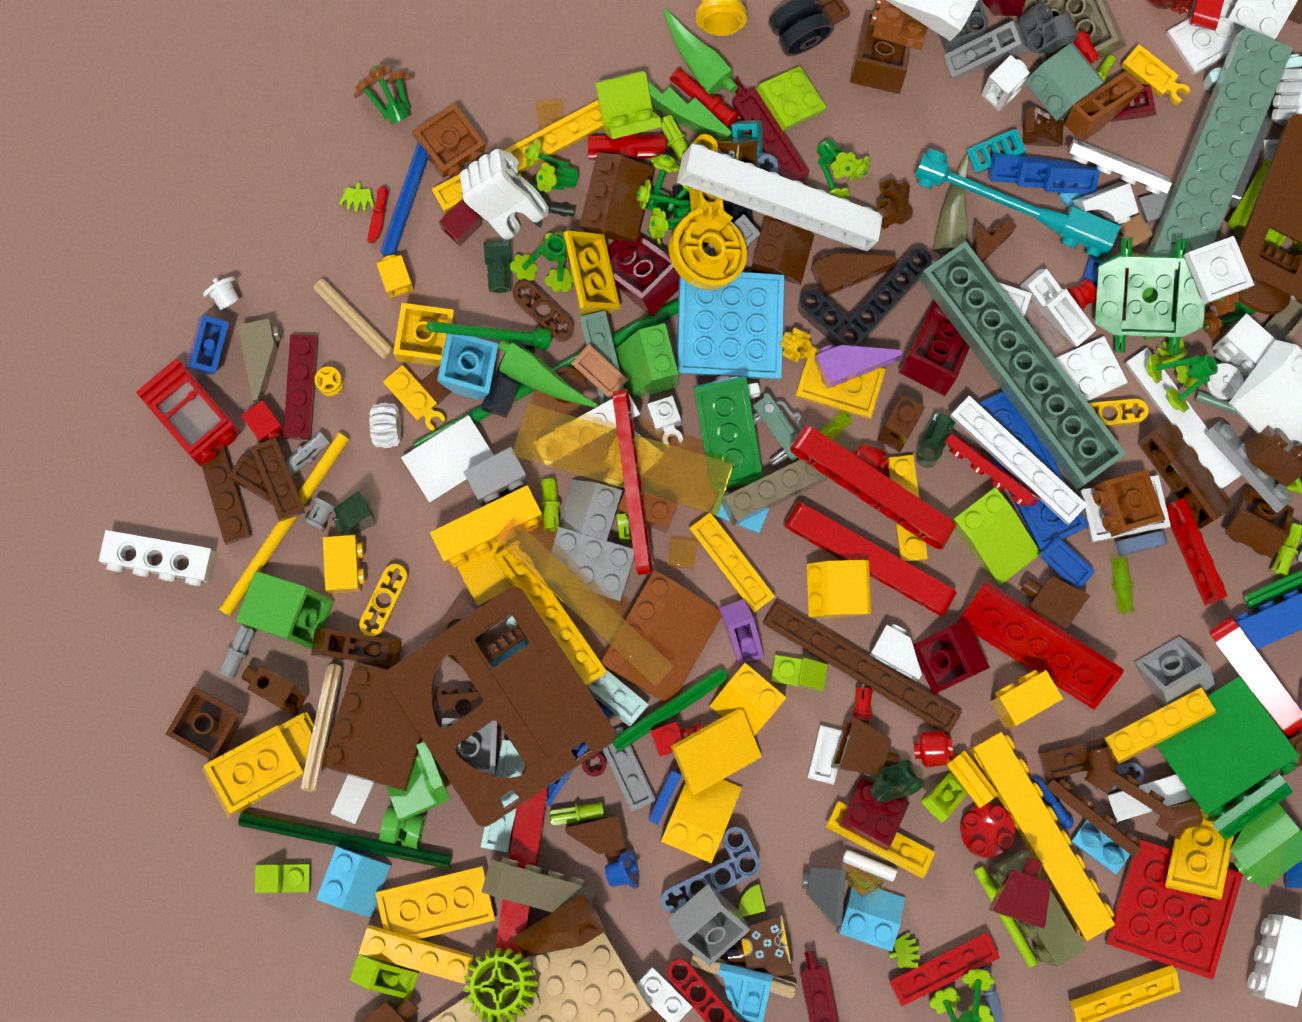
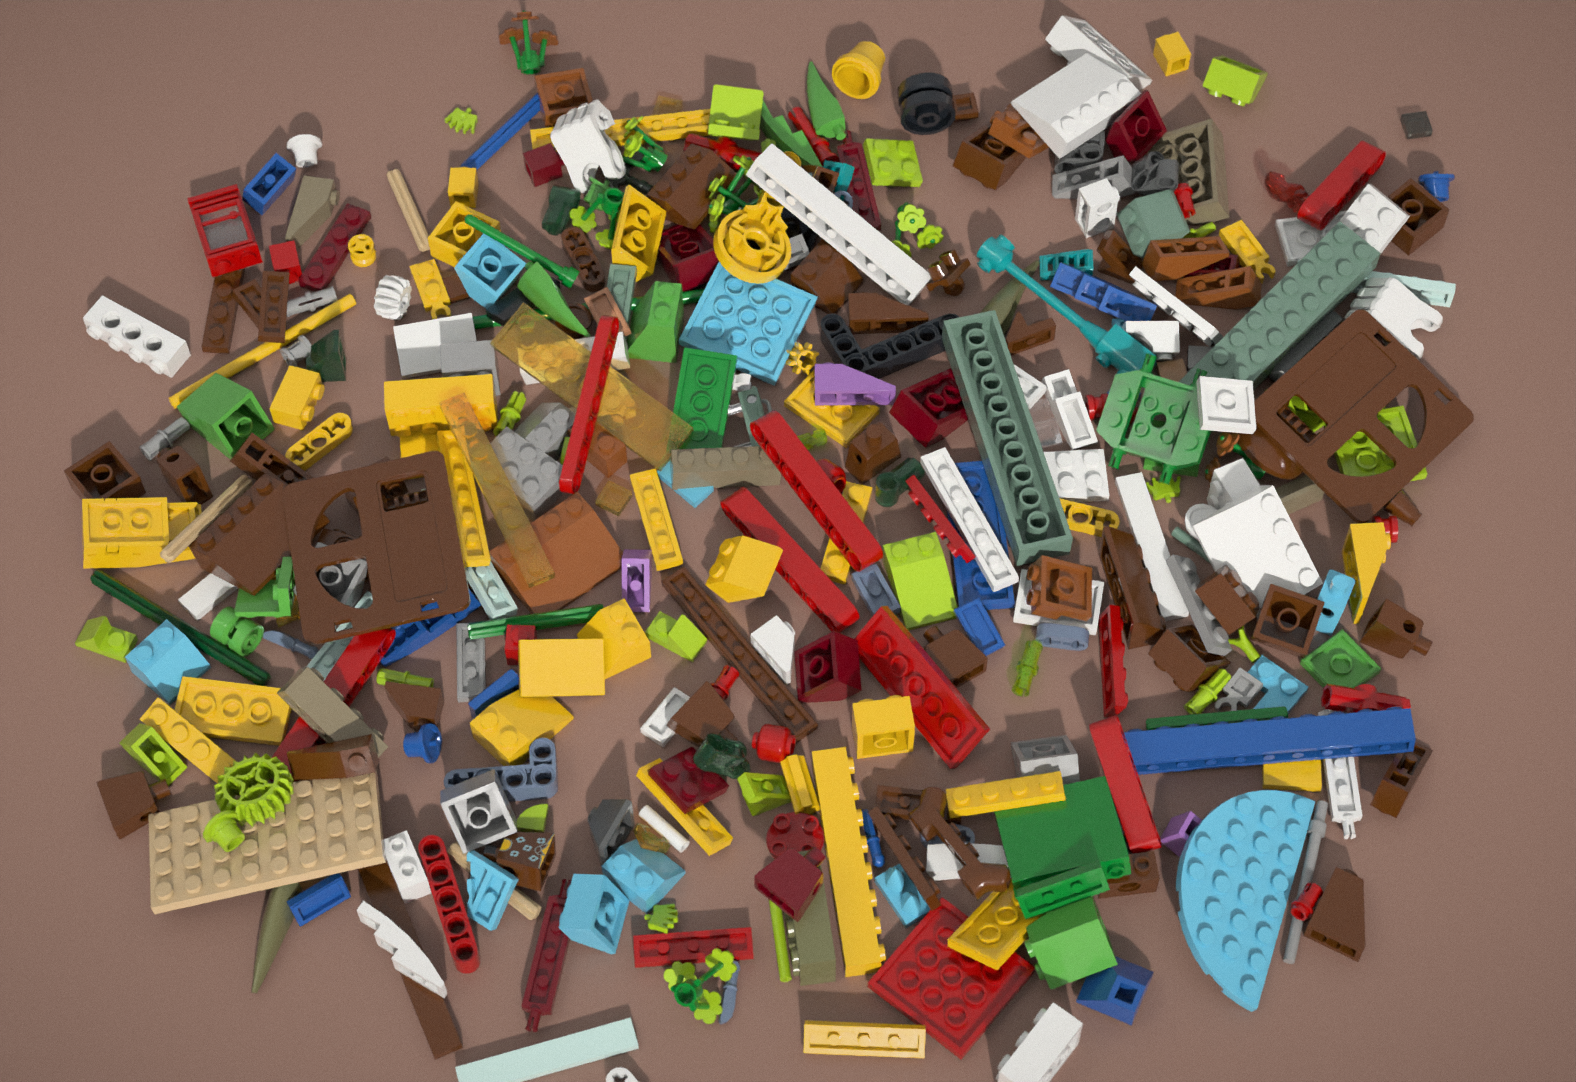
camera: 25 degrees right, 20 degrees down
(378, 215) = (475, 135): red piece -> none
(451, 815) = (290, 643): none -> sand blue piece
(529, 236) = (596, 188): none -> bright green piece
(595, 773) = (445, 638): dark red bush -> none
(665, 418) = (651, 375): white brick -> none
(848, 977) = (594, 912): none -> medium azure slope
(961, 563) = (875, 590): none -> sand blue plate
(1145, 127) = (1221, 289): none -> dark orange slope
(1190, 372) = (1172, 503): plant -> none

